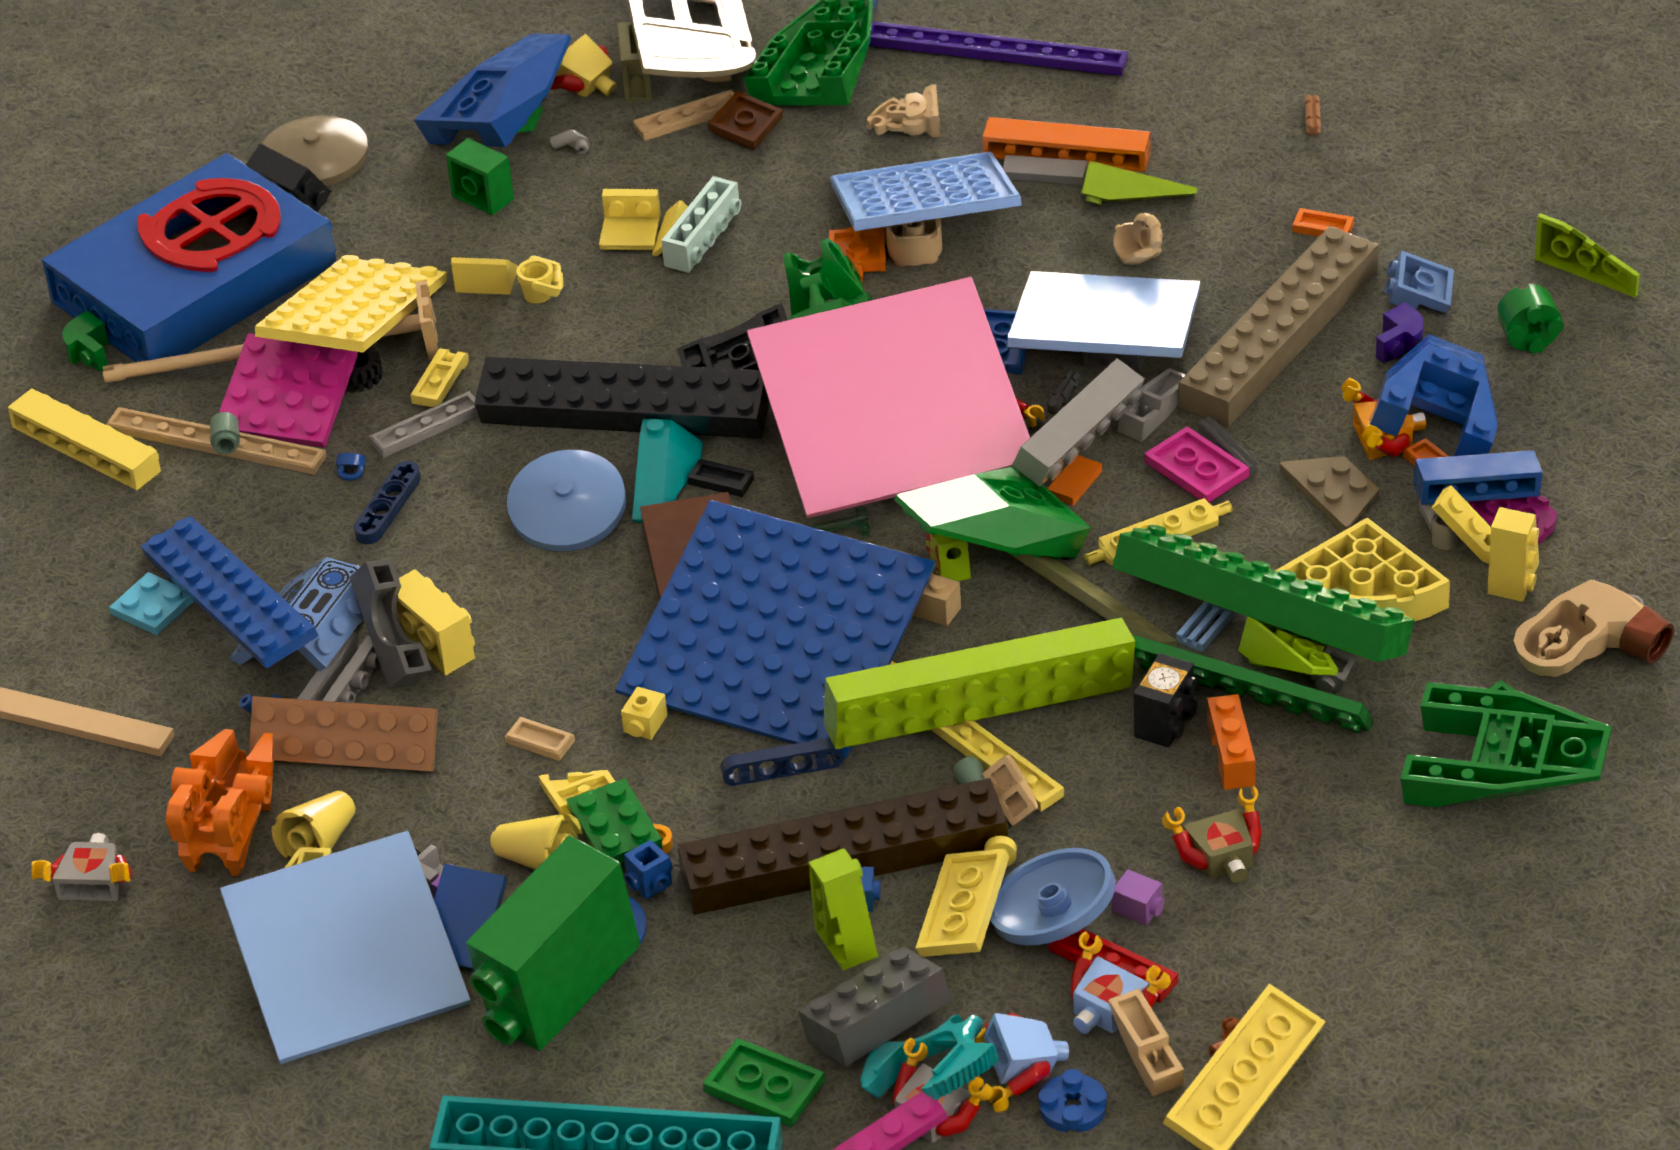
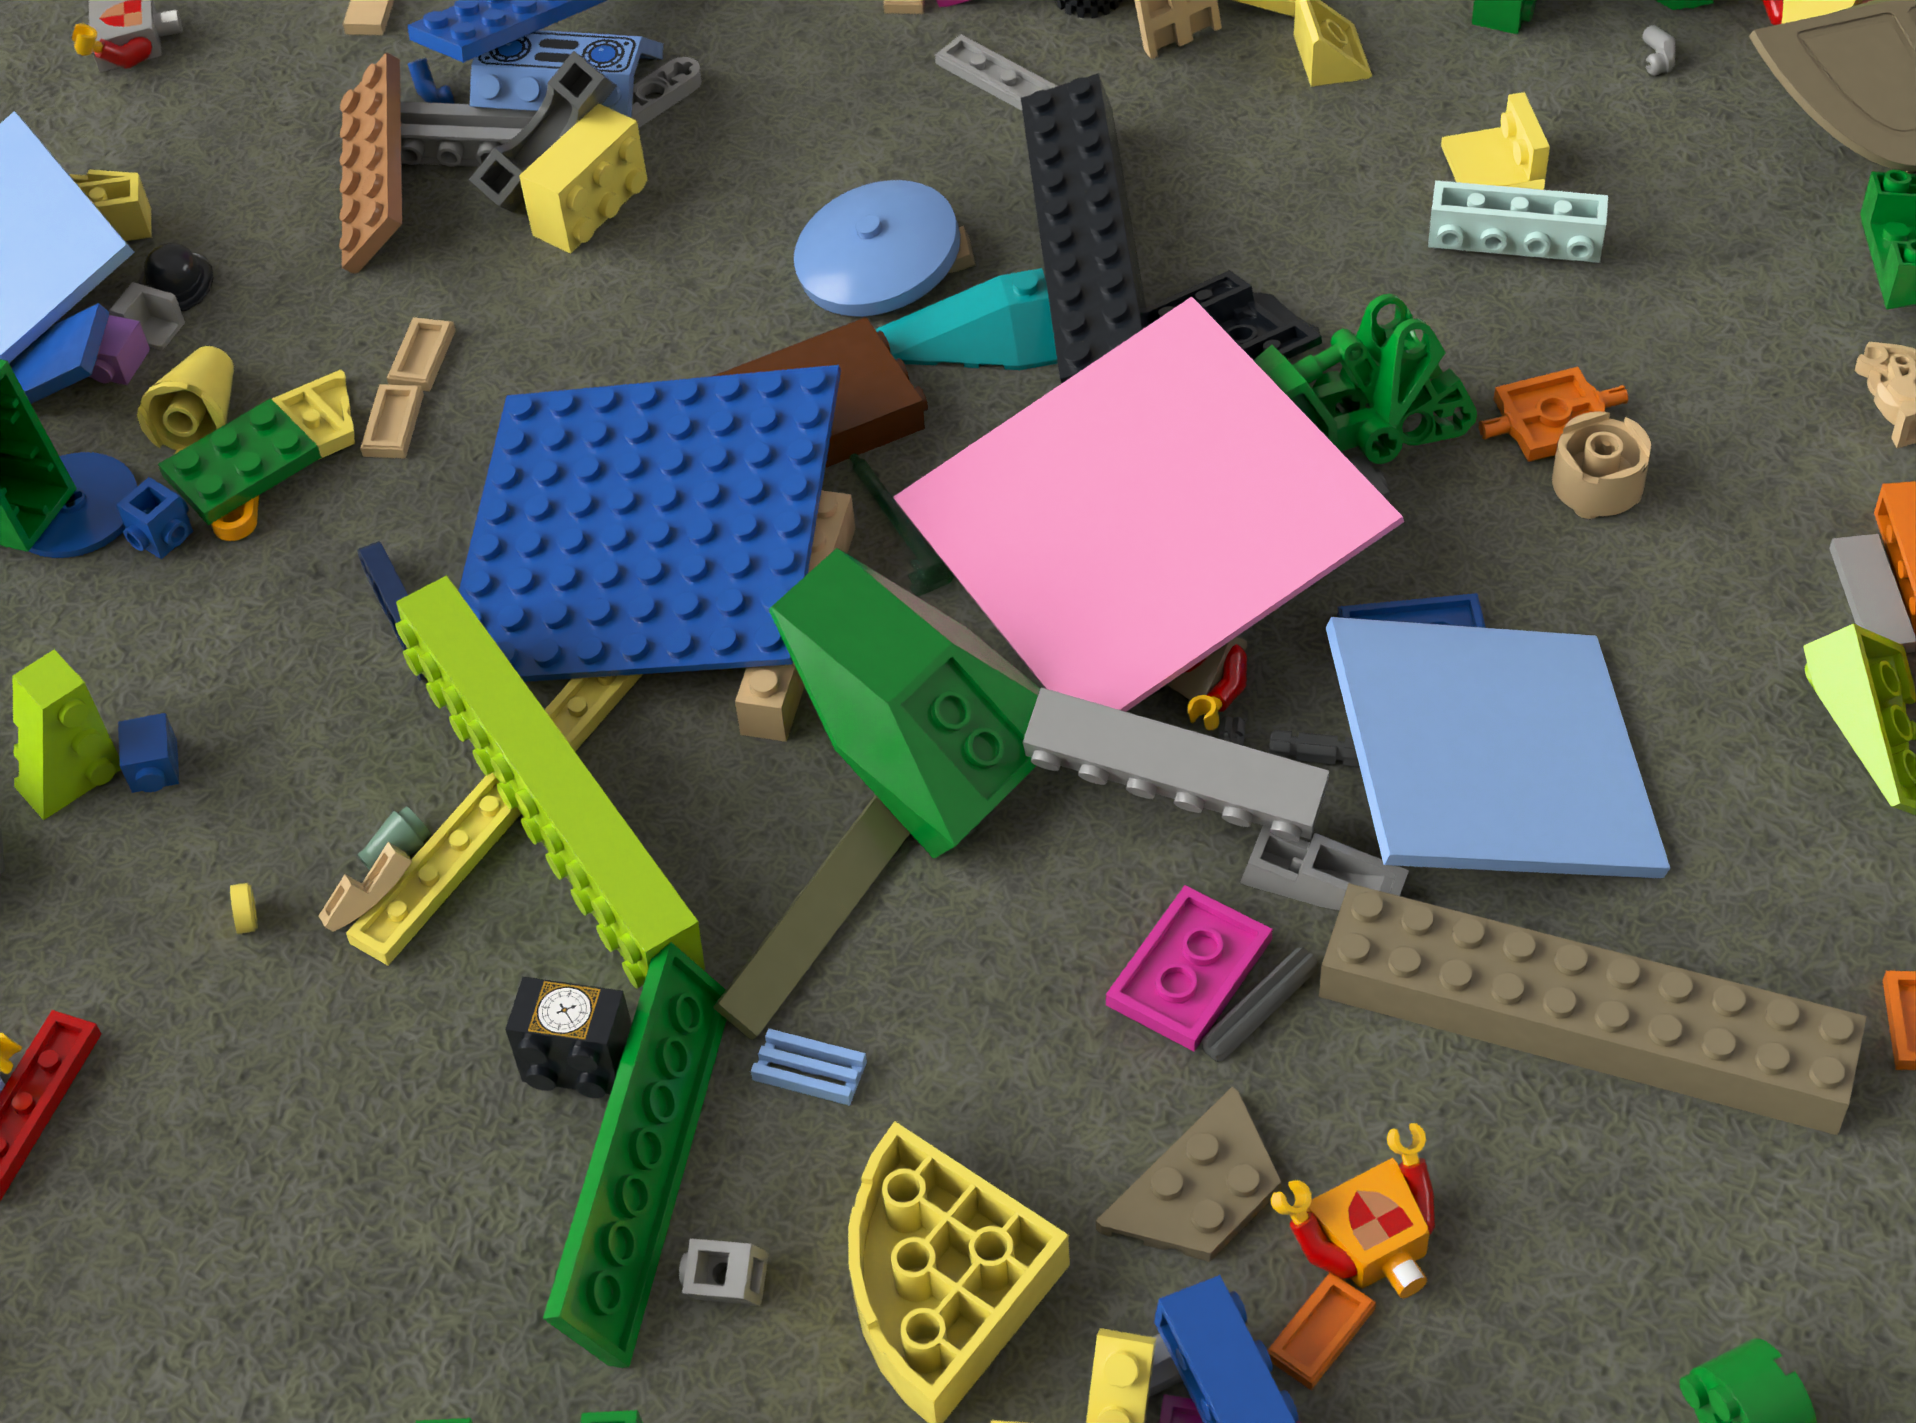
camera: 75 degrees right, 10 degrees up
(234, 793) = (282, 96): orange piece -> none
(313, 823) = (207, 186): light yellow cone -> none
(350, 460) = (900, 30): blue tile -> none
(383, 501) = (840, 83): dark blue beam -> none
(439, 377) = (1112, 61): light yellow plate -> none
(540, 279) = (1323, 90): light yellow piece -> none
(597, 757) = (392, 421): none -> tan tile
(644, 713) = (467, 437): light yellow brick -> none
(681, 116) = (1791, 152): tan tile -> none
(720, 477) = (987, 395): black tile -> none
(745, 120) = (1798, 210): reddish brown plate -> none
(880, 835) = (232, 725): dark brown brick -> none
(924, 191) = (1695, 445): light blue tile -> none
(962, 903) = (123, 885): light yellow plate -> none
(1053, 896) = (128, 989): medium blue dish -> none
(1075, 479) = (1110, 813): orange tile -> none
(1138, 240) = (1718, 754): tan hair -> none
(1138, 897) = (156, 1106): medium lavender brick -> none
(1183, 520) = (1016, 954): light yellow plate -> none
(1219, 842) = (282, 1188): torso -> none
(1233, 743) = (480, 1163): orange arch -> none
(1264, 593) = (824, 1128): green brick -> none
(1283, 649) = (724, 1190): lime wedge -> none
(1401, 332) = (1647, 1214): dark purple brick -> none
(1419, 282) = (1798, 1205): medium blue plate -> none
(1445, 383) = (1512, 1298): blue wedge -> none

